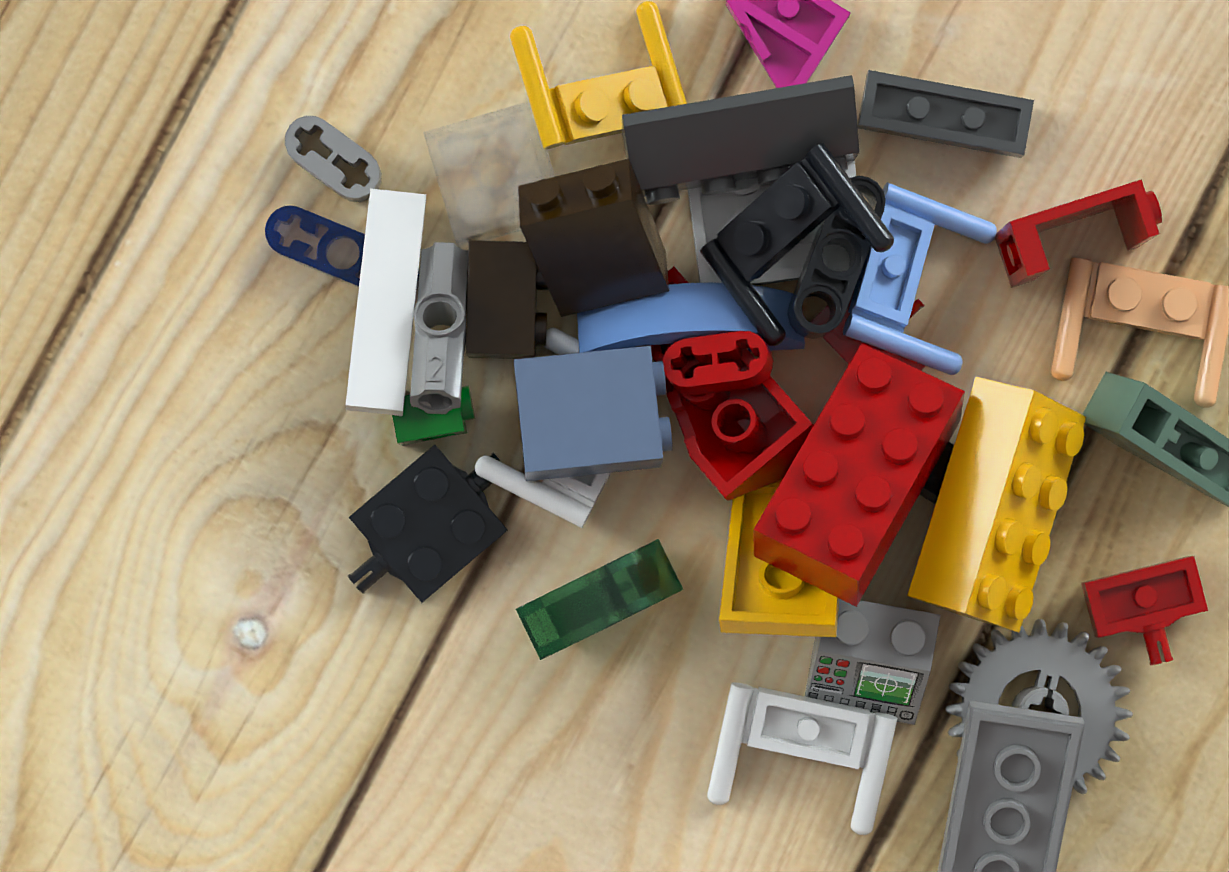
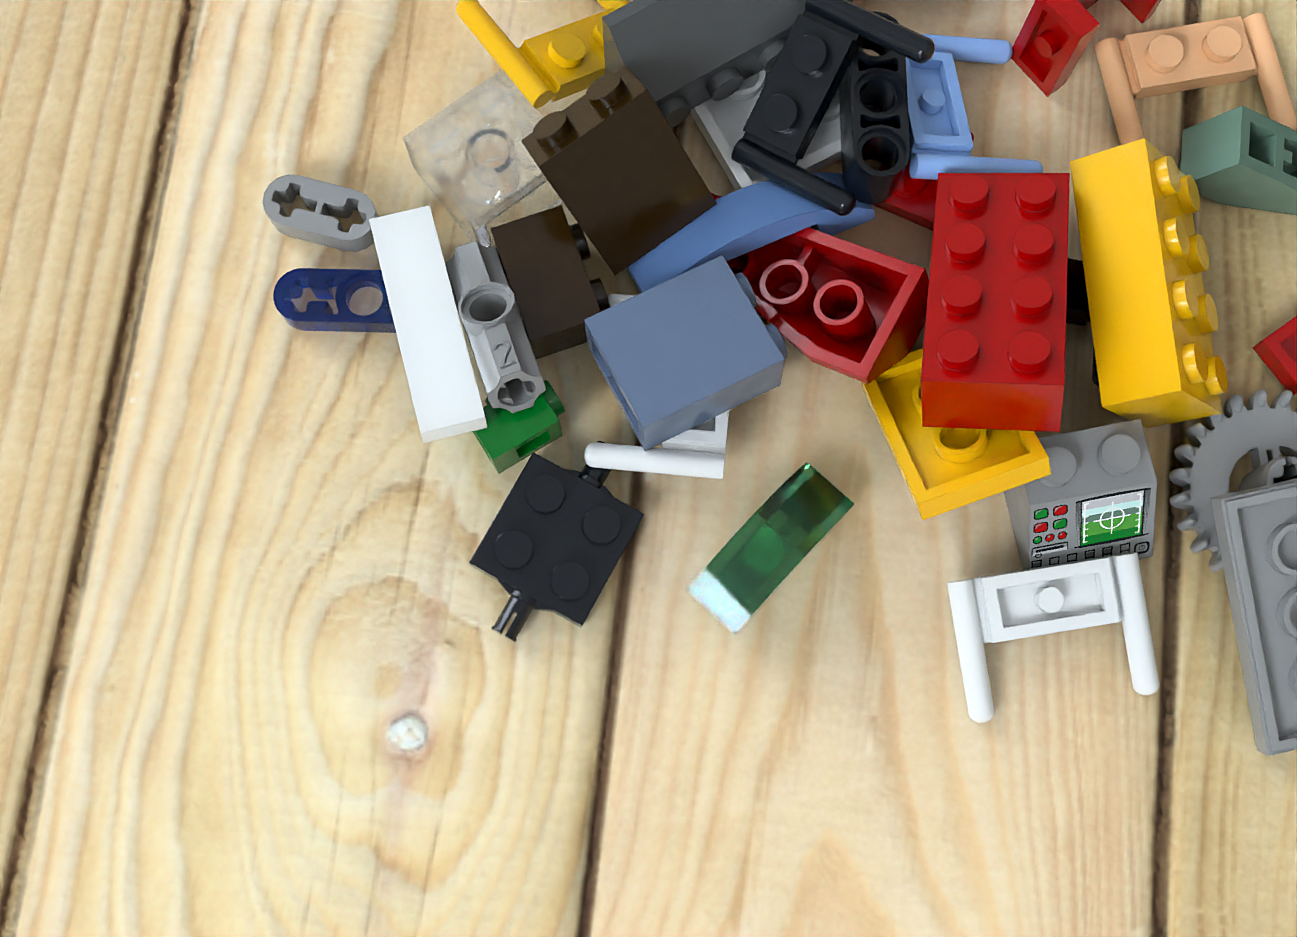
camera: 20 degrees left, 10 degrees down
(719, 375) = (798, 251): red beam -> none

